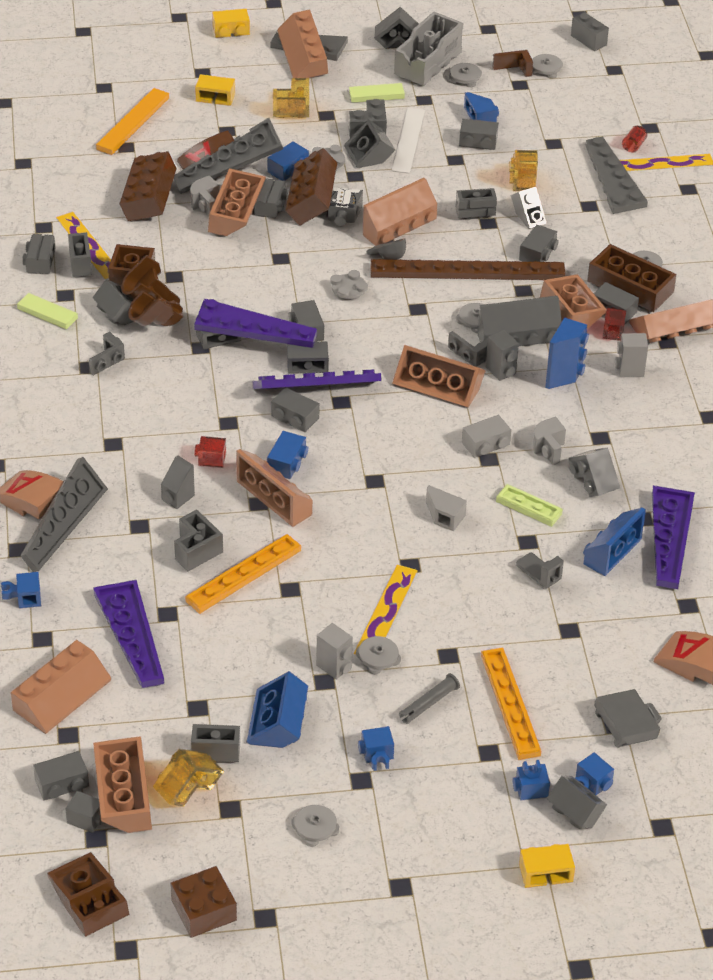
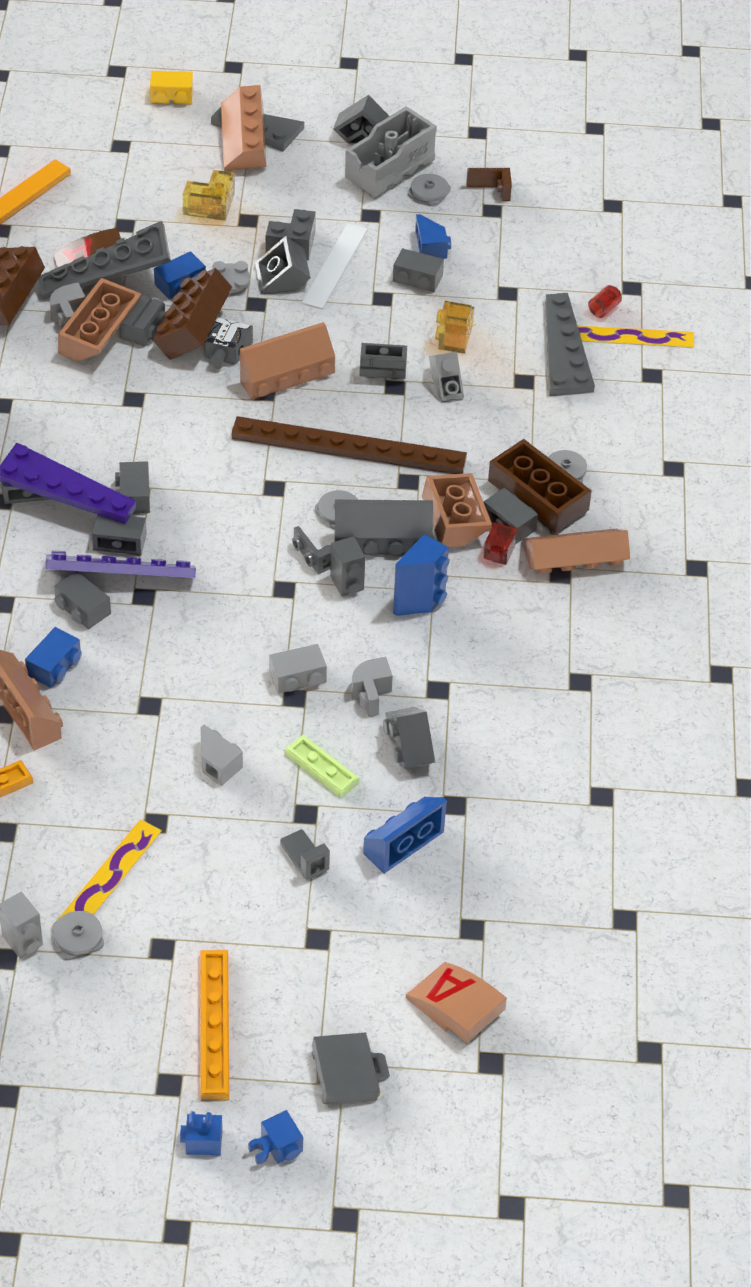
camera: 10 degrees right, 5 degrees up
(209, 85) = (119, 165): yellow piece -> none
(348, 285) = (199, 446): light grey piece -> none
(377, 746) = (34, 1056): blue brick -> none
(382, 91) = (315, 199): yellowish green tile -> none
(389, 251) = (262, 408): dark grey cap -> none
(430, 698) = (118, 1003): dark grey pin -> none
(438, 376) = (266, 581): nougat slope -> none
(538, 244) = (442, 425): dark grey brick -> none
(547, 65) = (531, 189): light grey piece -> none
(550, 860) = (184, 1243): yellow piece -> none
(576, 802) = (245, 1171): dark grey brick -> none
(589, 31) = (595, 152): dark grey brick -> none
(632, 355) = (504, 589): light grey brick -> none
(671, 524) = (483, 821): dark purple wing -> none

